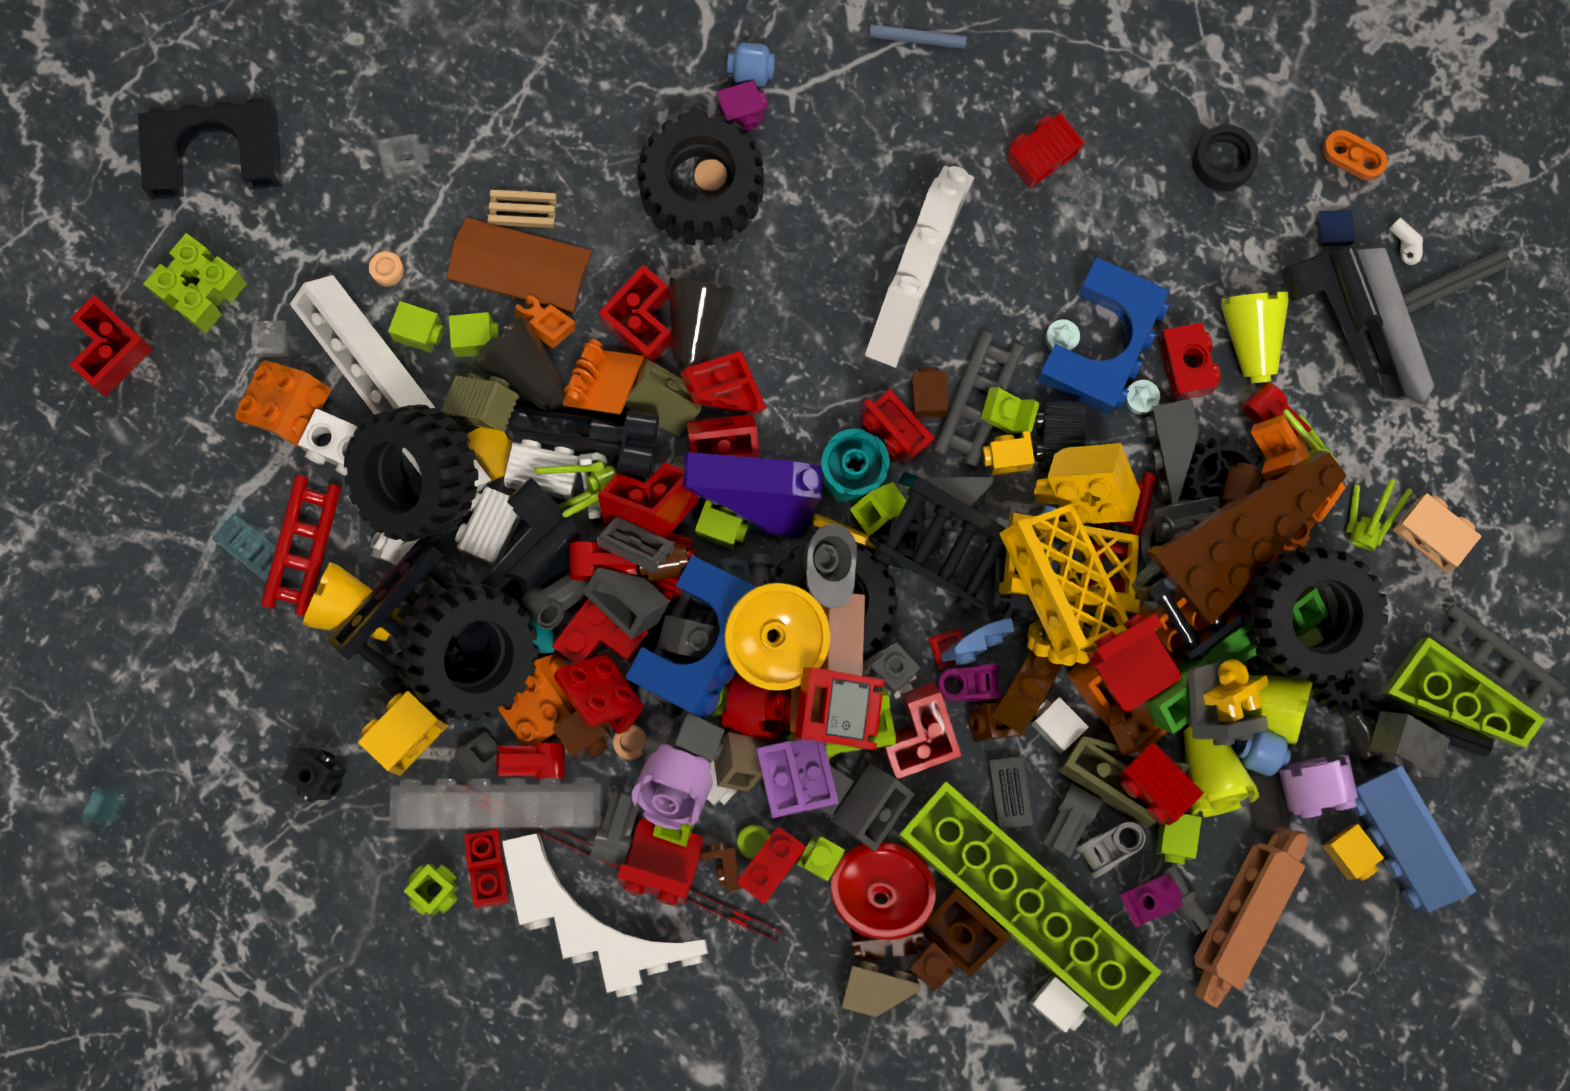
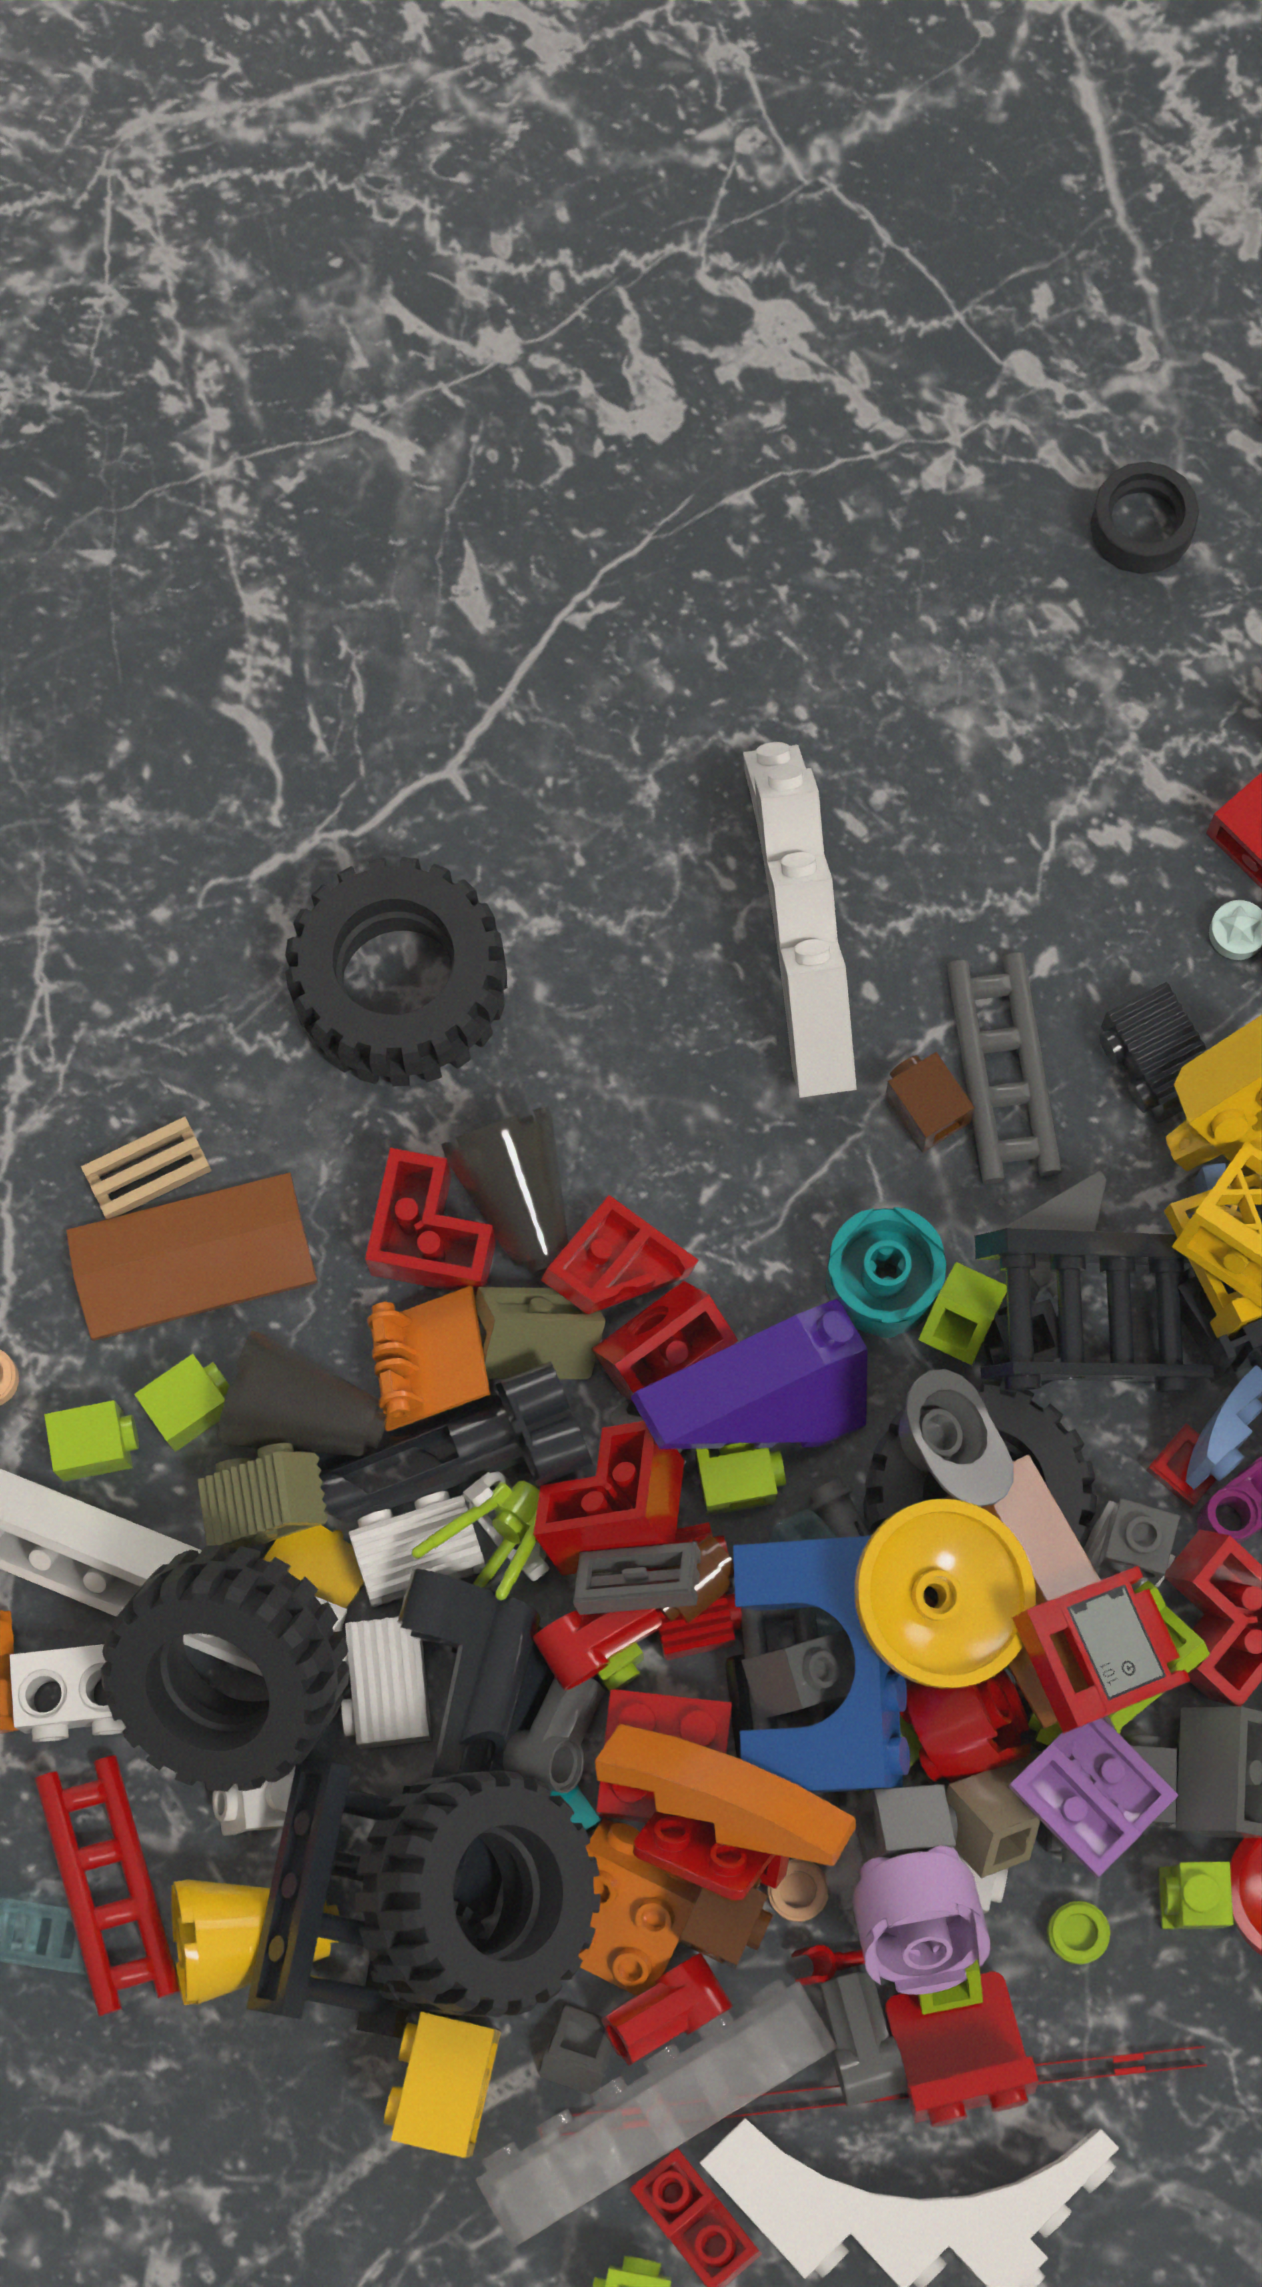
camera: 25 degrees left, 5 degrees down
(315, 774) = (343, 2233): black brick -> none
(548, 323) = (292, 1318): orange plate -> none
(618, 676) = (742, 1800): none -> orange slope
(622, 783) = (827, 1962): none -> red hand
(627, 600) = (672, 1673): dark grey slope -> none
(710, 176) = (404, 961): light nougat tile -> none
(728, 872) = (1070, 2000): reddish brown bracket -> none
(743, 104) = (392, 827): magenta brick -> none
(751, 63) = (370, 761): medium blue head -> none
(771, 865) = (1132, 1952): red bracket -> none
(820, 521) = (903, 1379): yellow piece -> none
(895, 426) = (909, 1176): red bracket -> none
(917, 36) = (589, 586): sand blue bar -> none
(1009, 412) = (1064, 1060): lime bracket -> none
(1009, 454) = (1100, 1123): yellow brick -> none
(1044, 150) = (877, 648): red brick -> none
(1063, 334) = (1069, 907): light aqua tile -> none
(1138, 306) = (1156, 802): blue arch -> none

